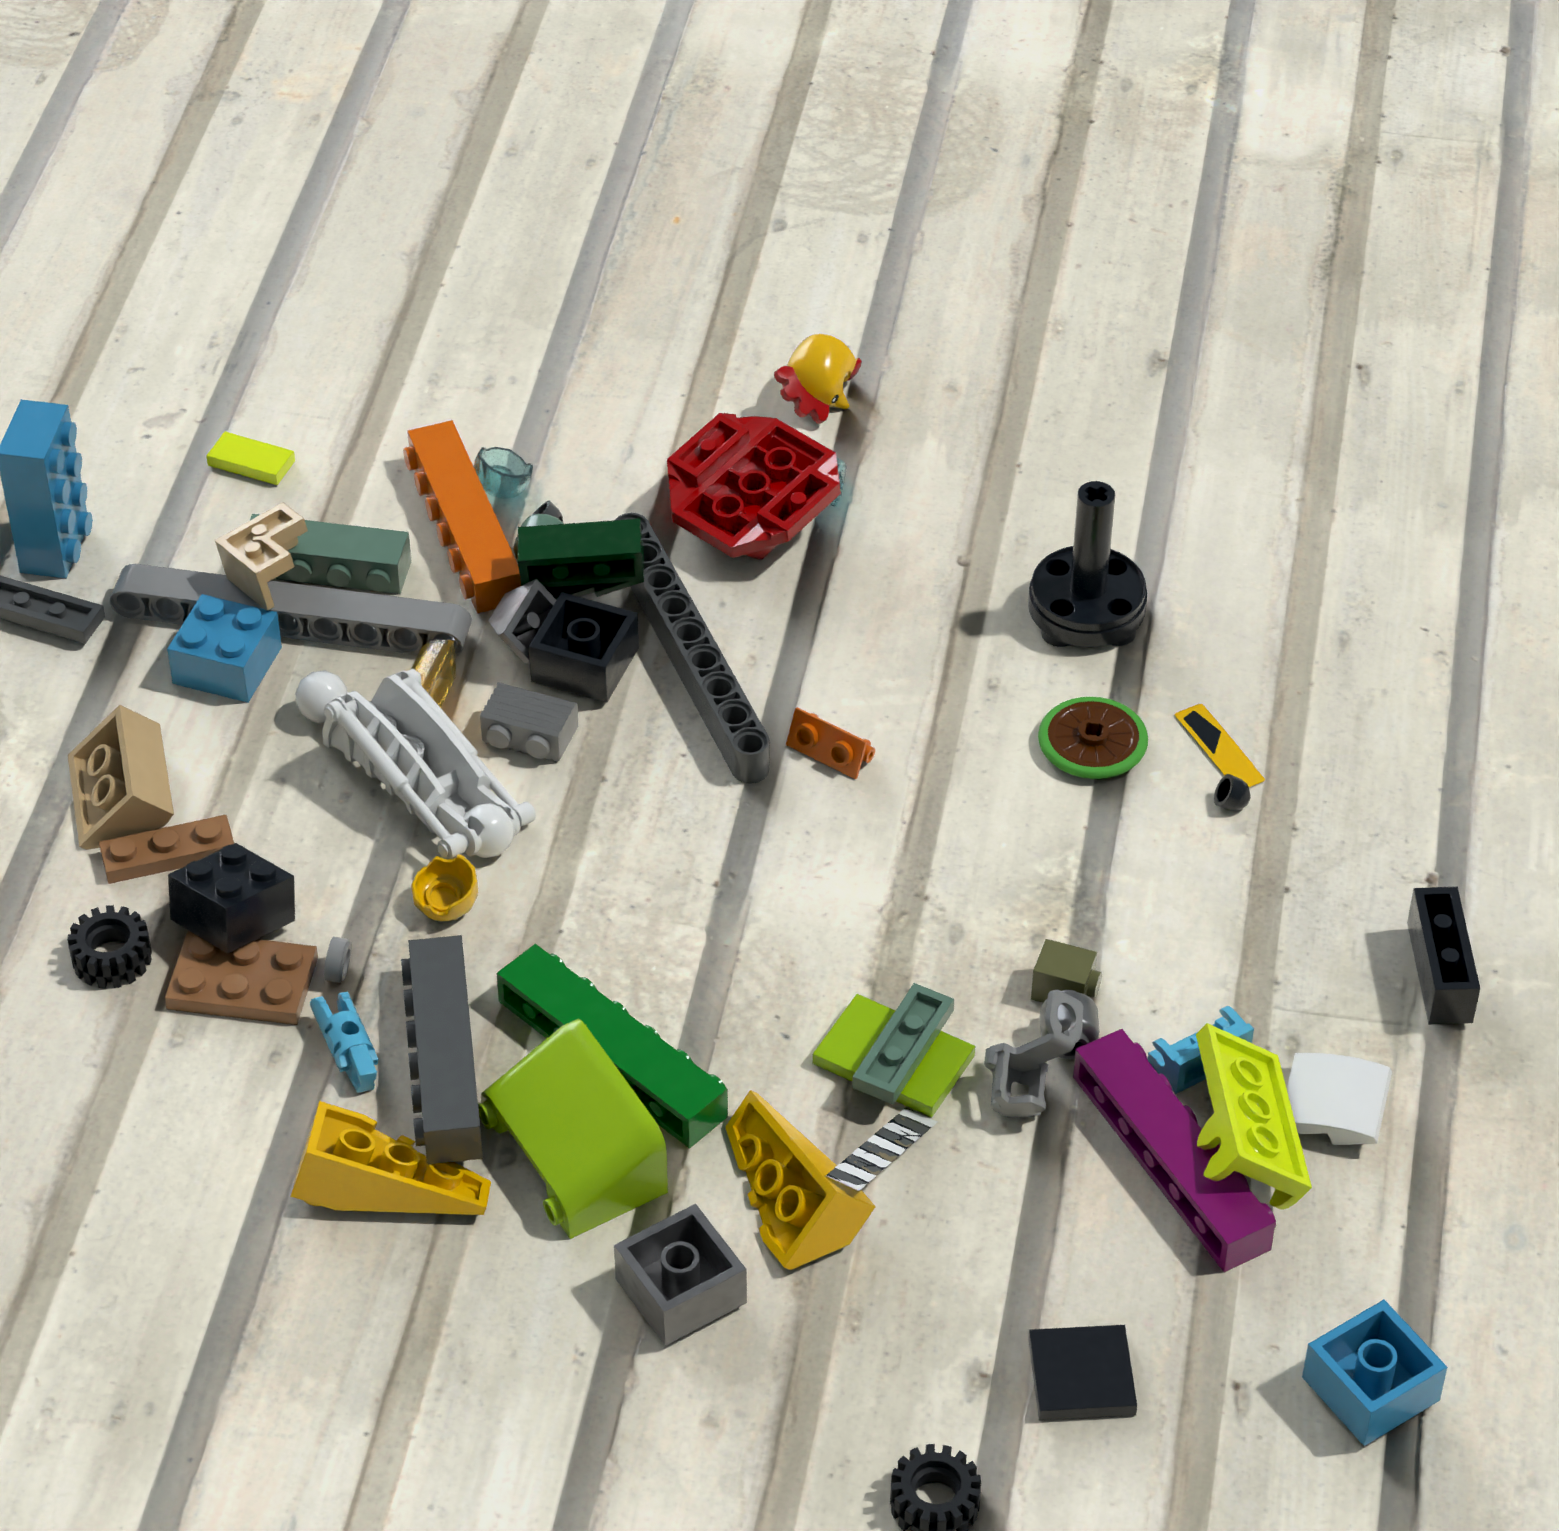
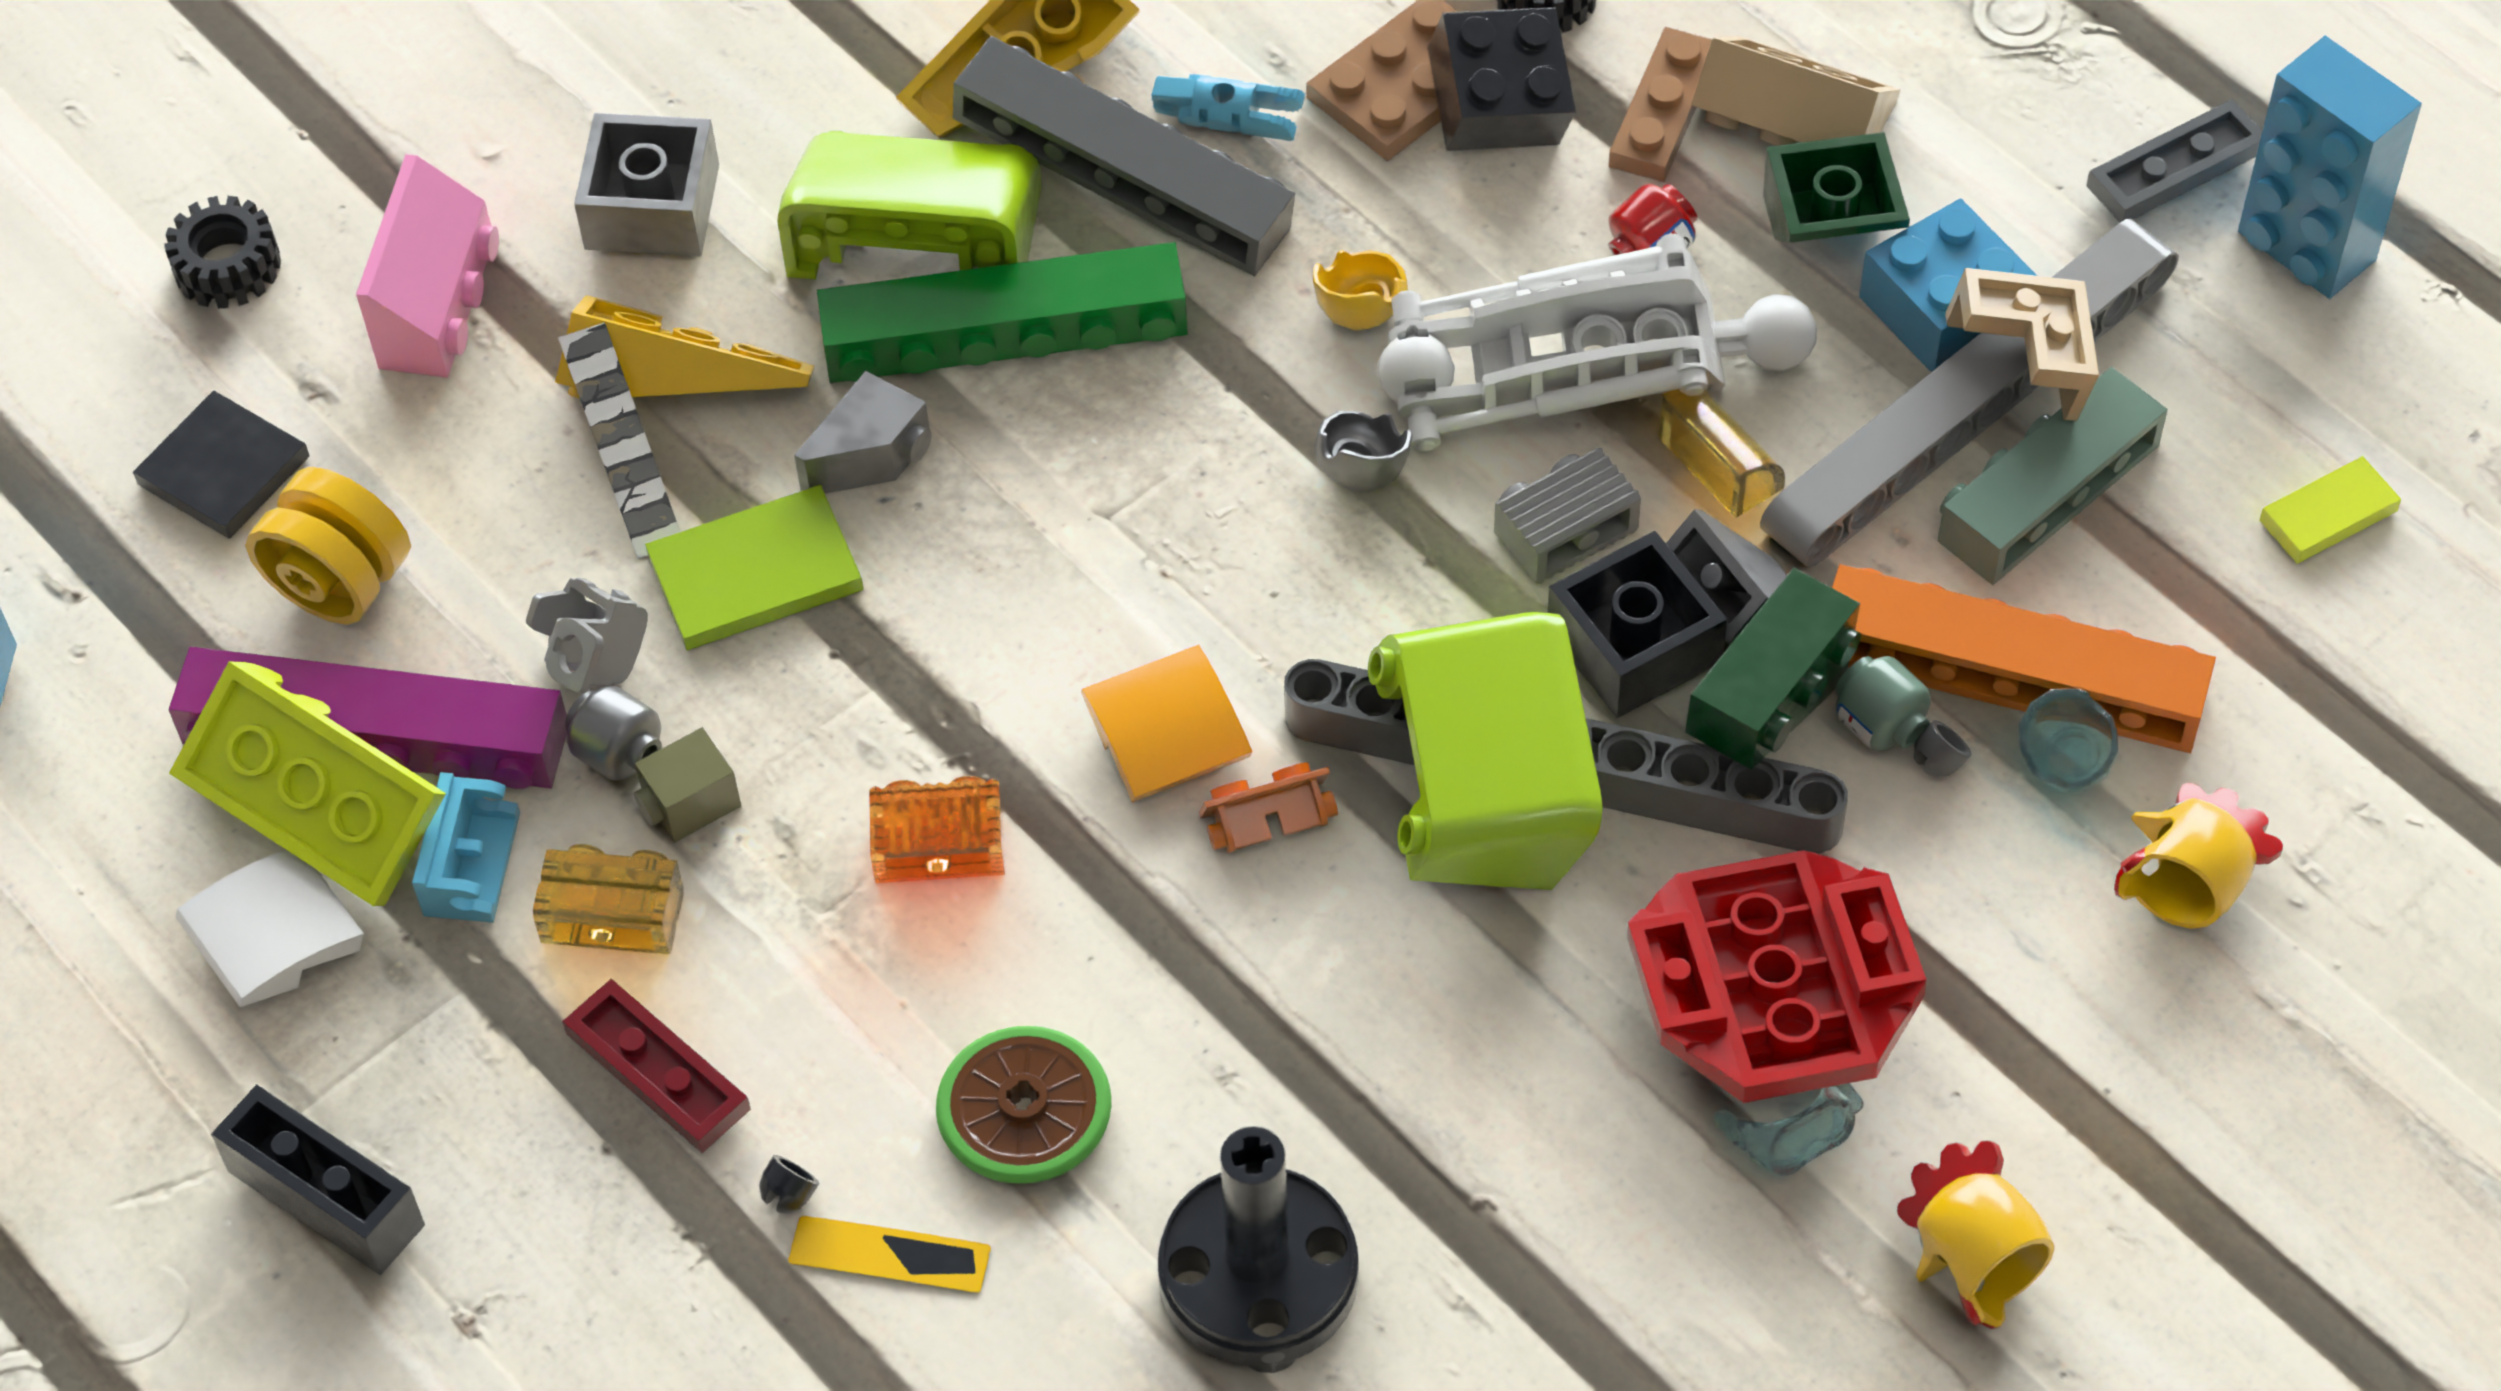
camera: 130 degrees right, 10 degrees up
(206, 708) = (1833, 188): none -> dark green slope
(284, 790) = (1650, 216): none -> red head
(337, 959) = (1347, 149): light grey tile -> none
(530, 397) = (2203, 856): none -> yellow piece
(563, 821) = (1361, 450): none -> flat silver hair
(711, 633) = (1494, 750): none -> lime windscreen
(766, 1050) = (865, 438): none -> flat silver slope
(821, 806) = (1166, 722): none -> light orange slope
(857, 1346) = (425, 271): none -> bright pink slope
(903, 1043) = (735, 550): sand green plate -> none
(983, 855) = (936, 830): none -> clear orange brick
(1099, 1224) = (328, 545): none -> yellow wheel
(1165, 961) = (608, 900): none -> clear yellow brick
(1229, 884) = (656, 1065): none -> dark red plate

